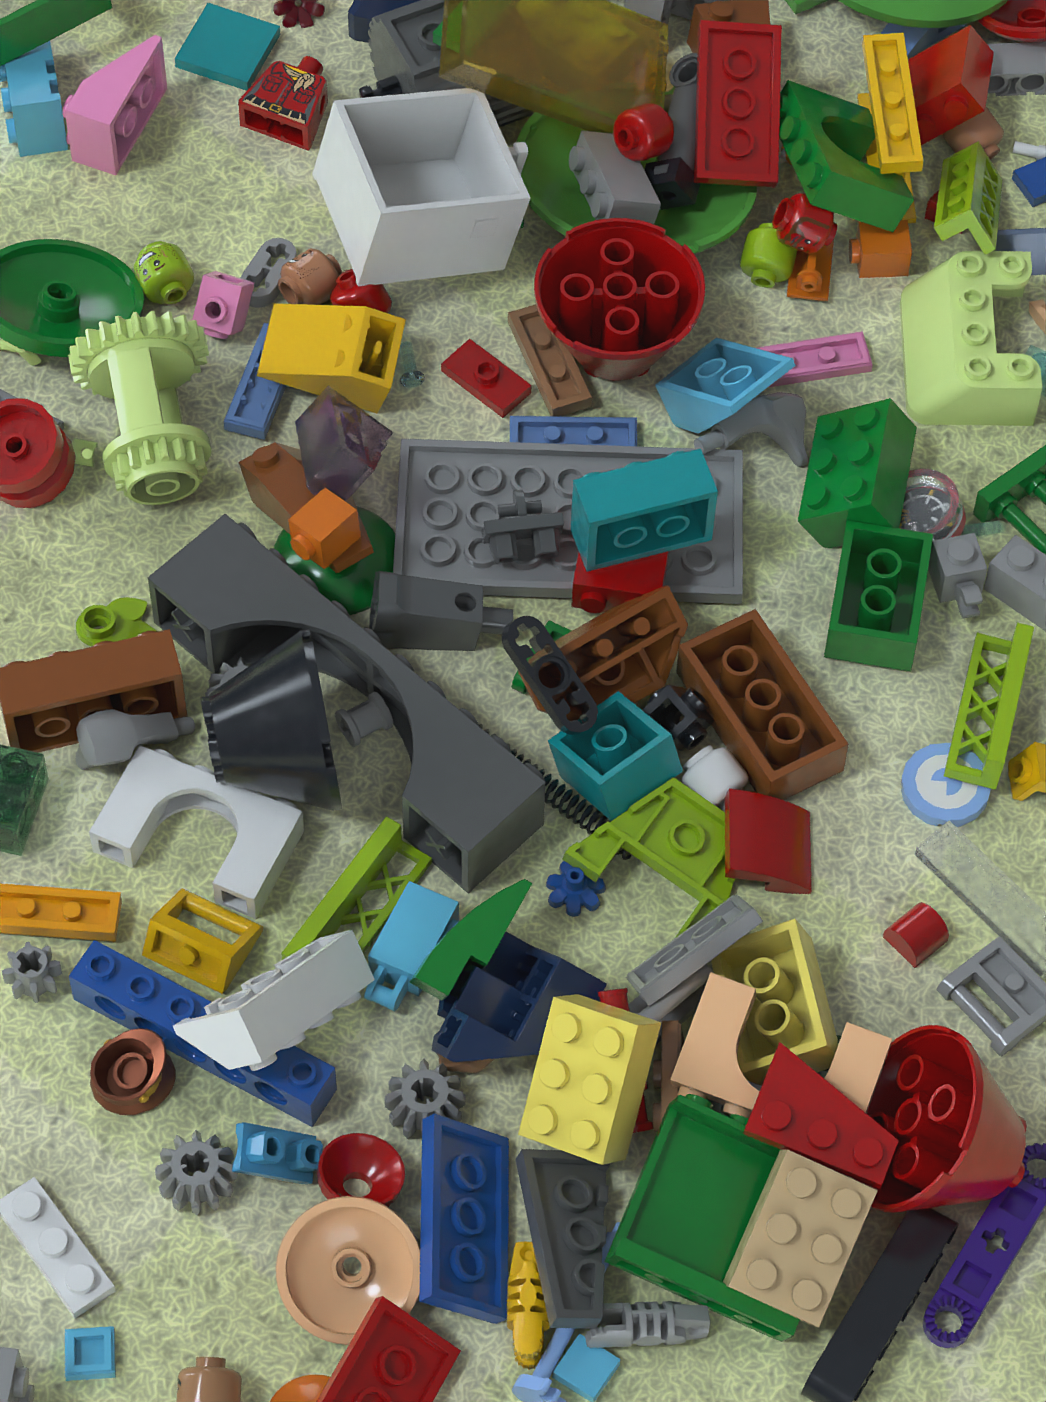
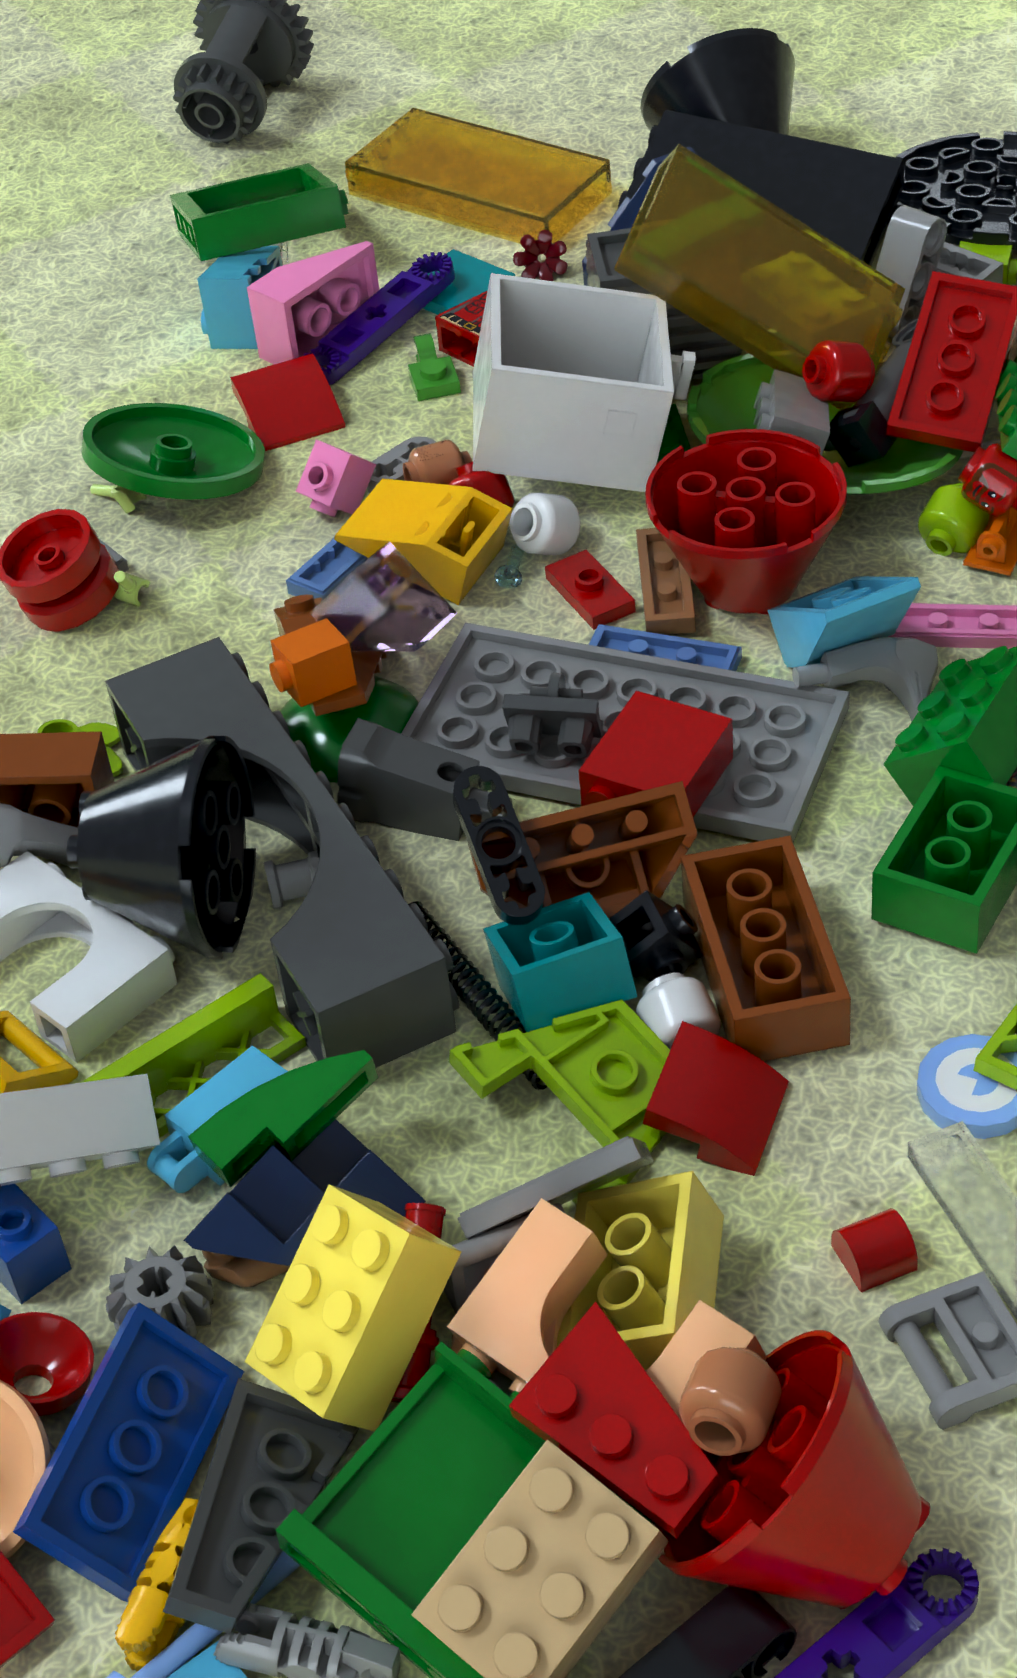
camera: 25 degrees right, 15 degrees down
(131, 214) = (288, 402): none -> red slope
(141, 367) = (208, 515): yellowish green piece -> none
(163, 273) = (287, 446): lime head -> none
(164, 127) = (382, 315): none -> dark purple piece
(248, 160) = (432, 375): none -> bright green plate
(429, 321) = (545, 524): none -> white head
(574, 890) = (459, 1107): blue plant -> none
(643, 509) = (678, 695): teal brick -> none
(894, 1090) = (730, 1401): none -> nougat head

